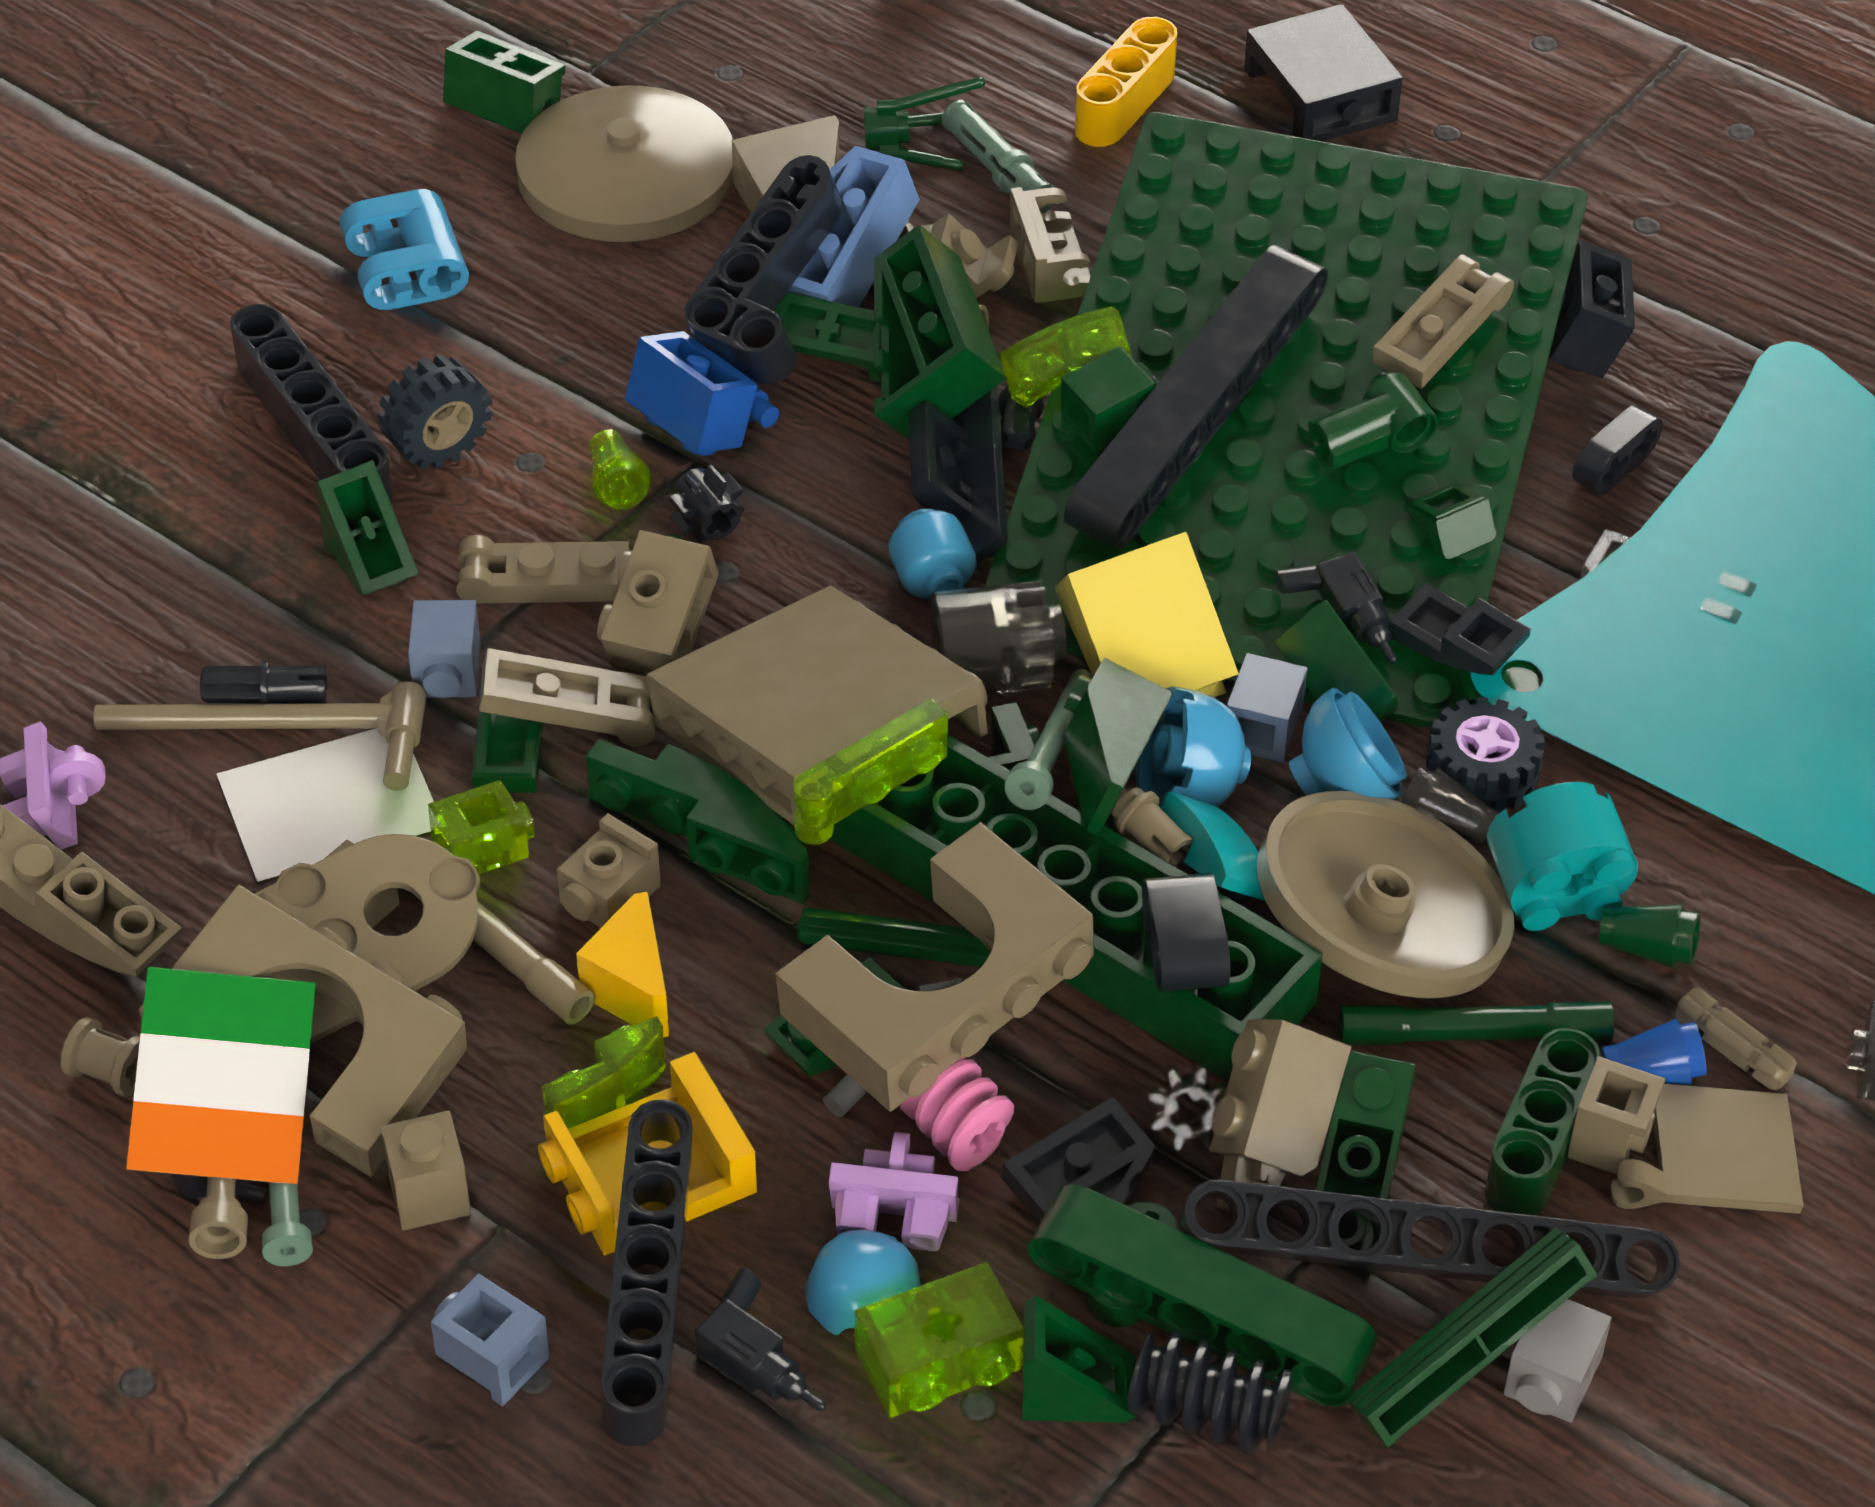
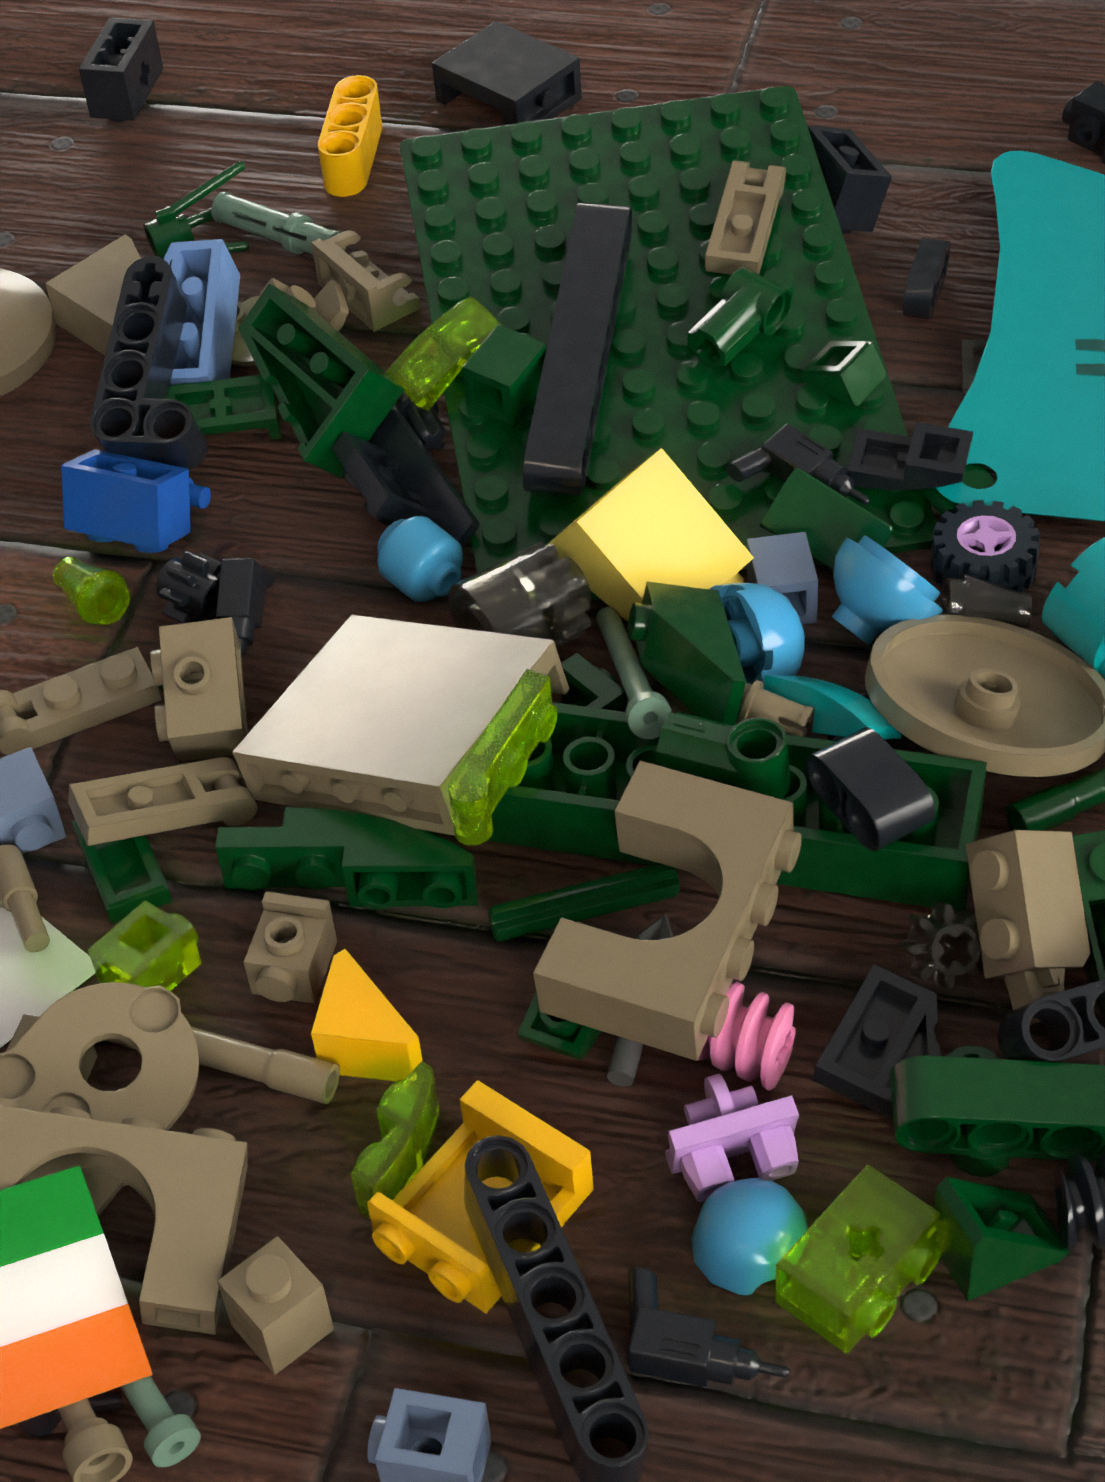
camera: 20 degrees left, 0 degrees up
(746, 531) = (242, 596): none -> black piece
(1081, 852) = (742, 755): none -> dark green piece

